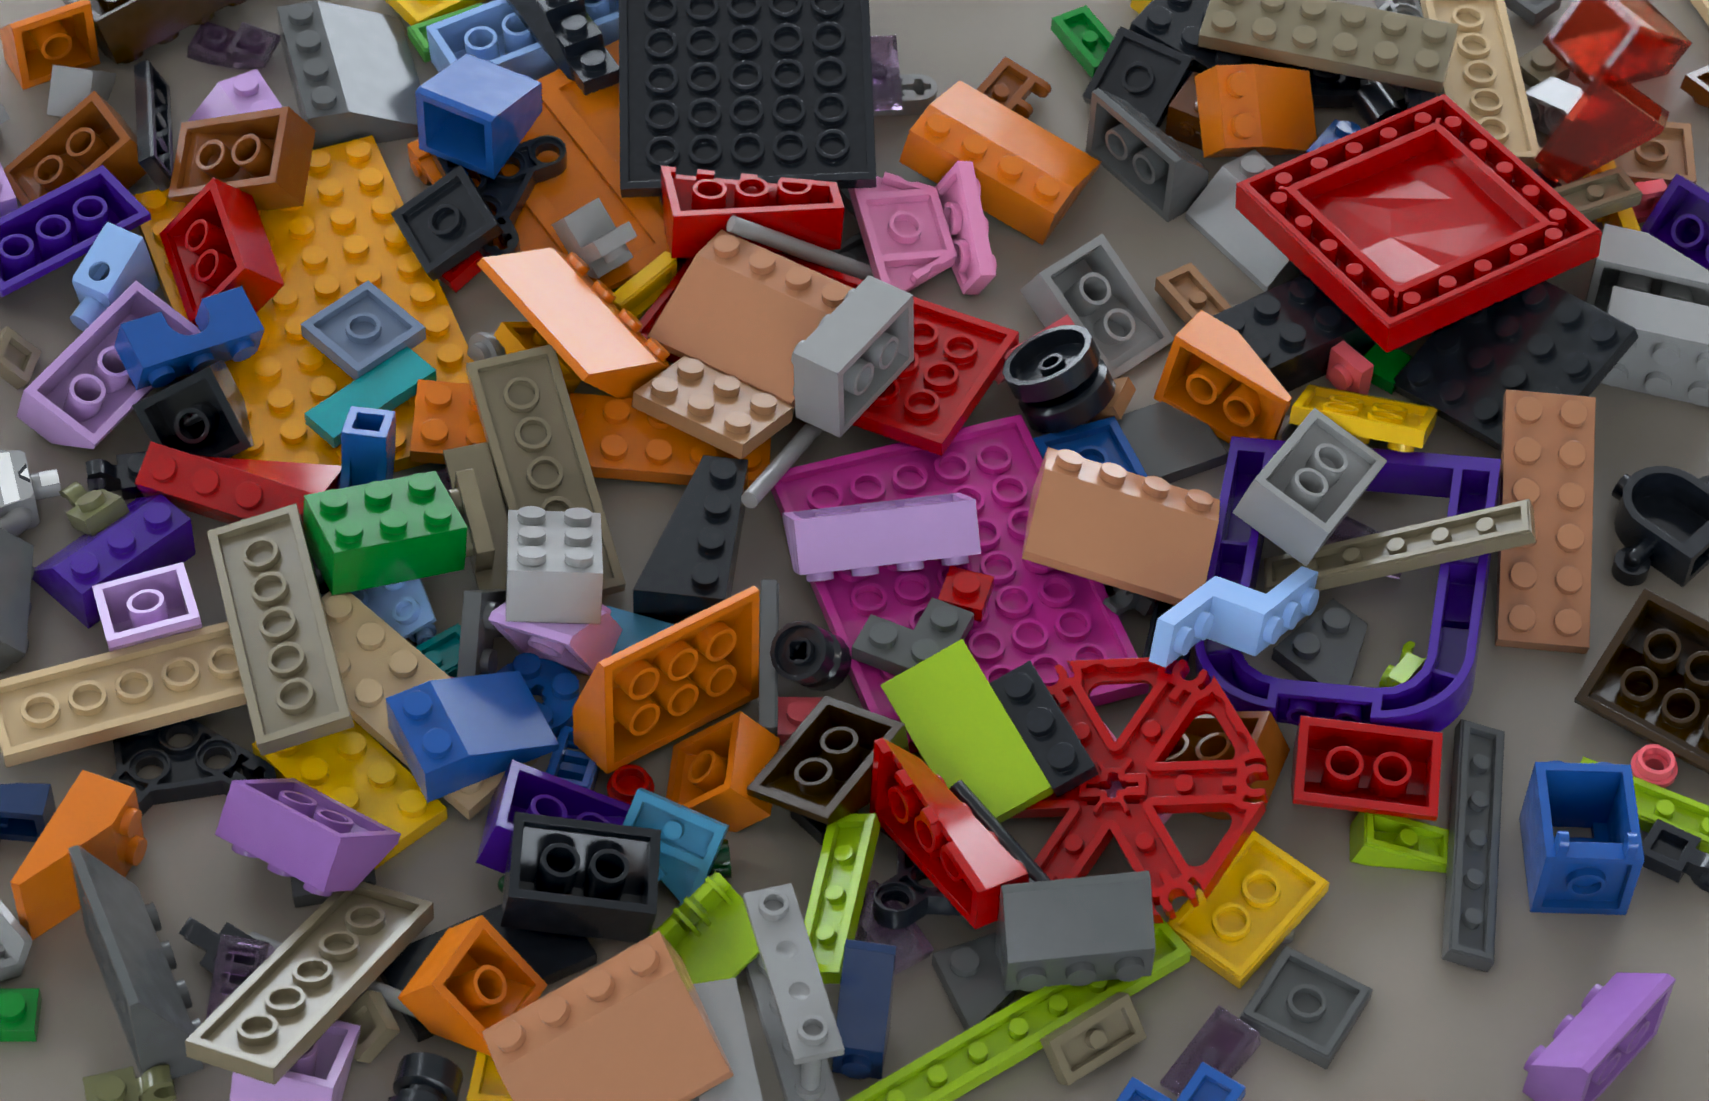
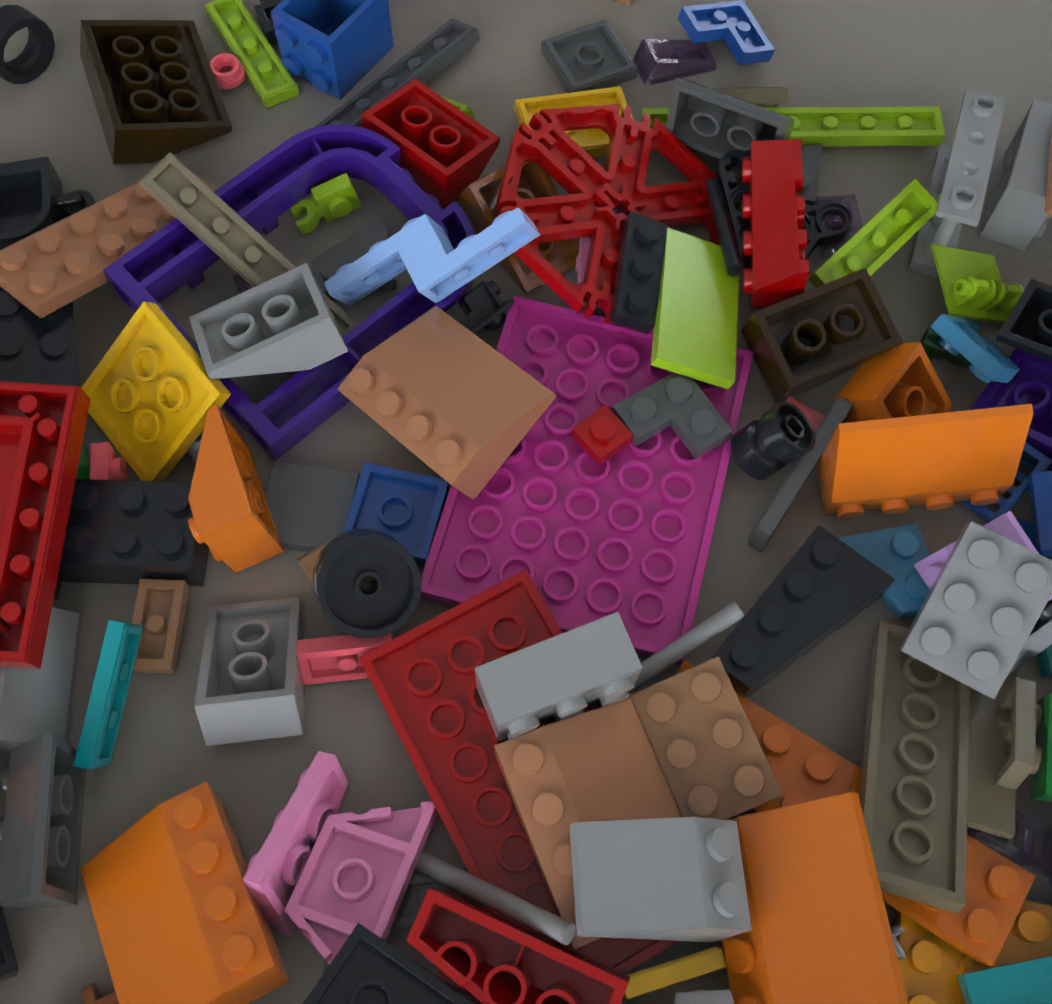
camera: 145 degrees left, 15 degrees up
(692, 283) = (659, 879): none -> light grey slope
(865, 1008) = (907, 152): dark blue slope -> none
(882, 534) = (637, 520): lavender slope -> none
(1179, 233) = (108, 694): none -> teal tile

